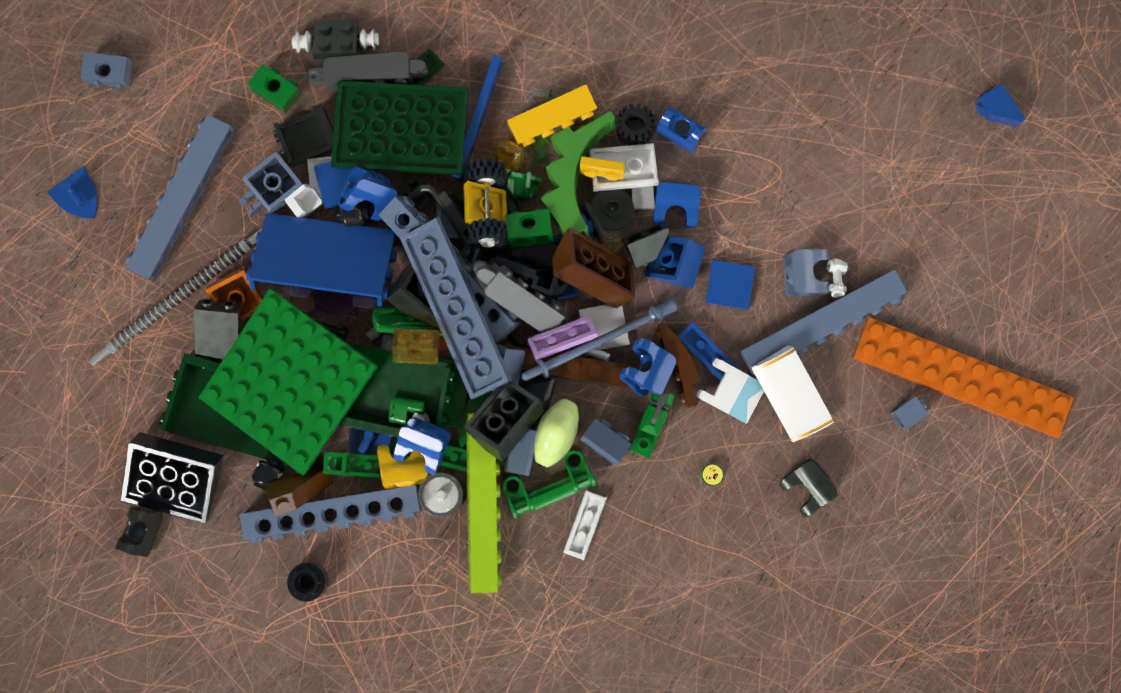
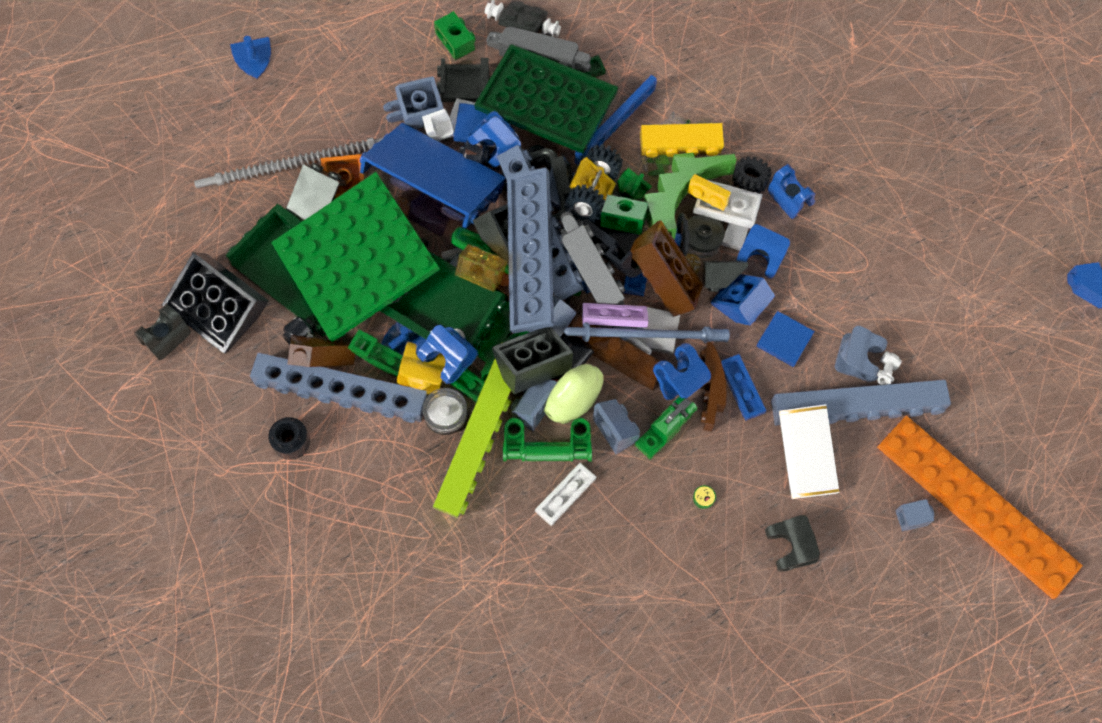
camera: 20 degrees right, 15 degrees down
(180, 198) = (335, 87): sand blue brick -> none
(401, 408) = (447, 318): green piece -> none
(510, 154) = (632, 156): clear yellow hair -> none
(736, 393) = (754, 432): white flag -> none

